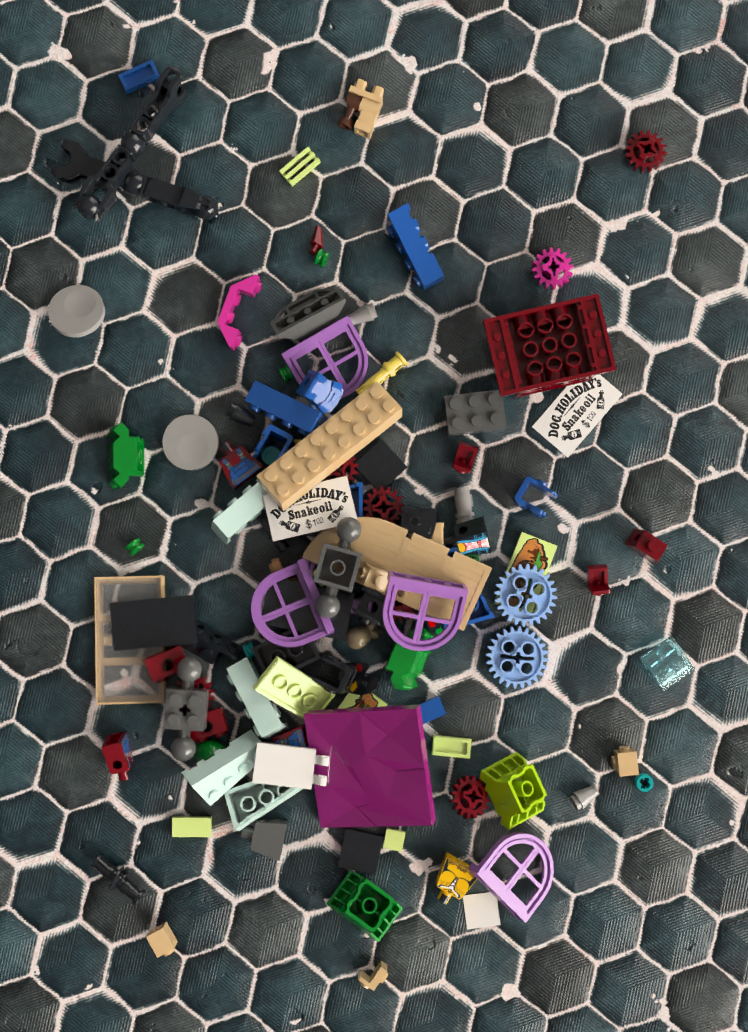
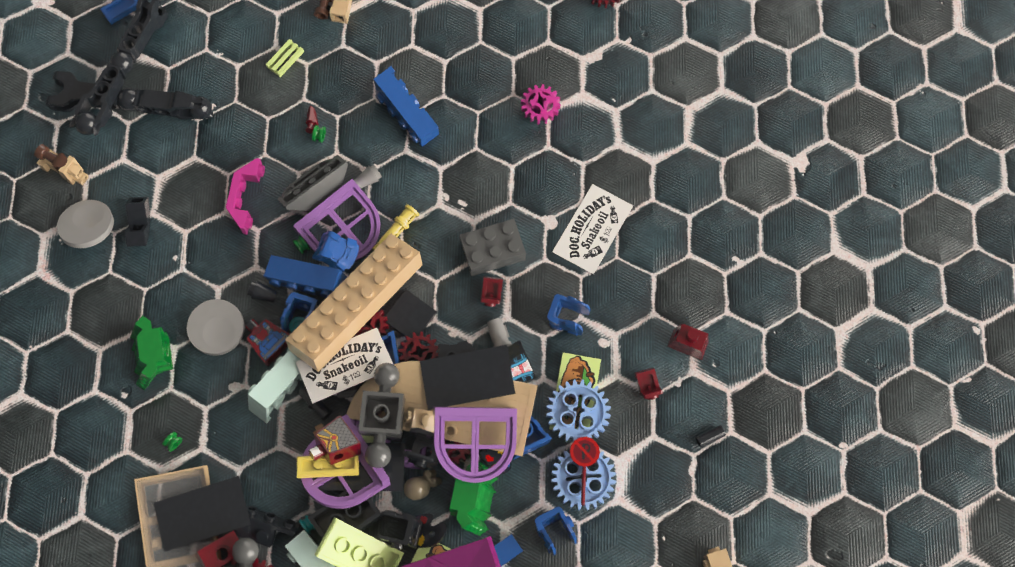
camera: 10 degrees left, 15 degrees down
(64, 248) = (66, 167): none -> tan hips
(129, 318) = (139, 221): none -> black brick
(278, 604) = (321, 468): none -> light yellow tile
(289, 585) = (335, 442): none -> torso
(426, 545) = (467, 377): none -> black sticker
(493, 698) = (547, 519): none -> blue piece
(523, 637) = (584, 453): none -> piece
(549, 346) = (550, 170): dark red wedge -> none
(646, 640) = (710, 436): none -> black axle
(667, 663) = (737, 454): clear light blue slope -> none

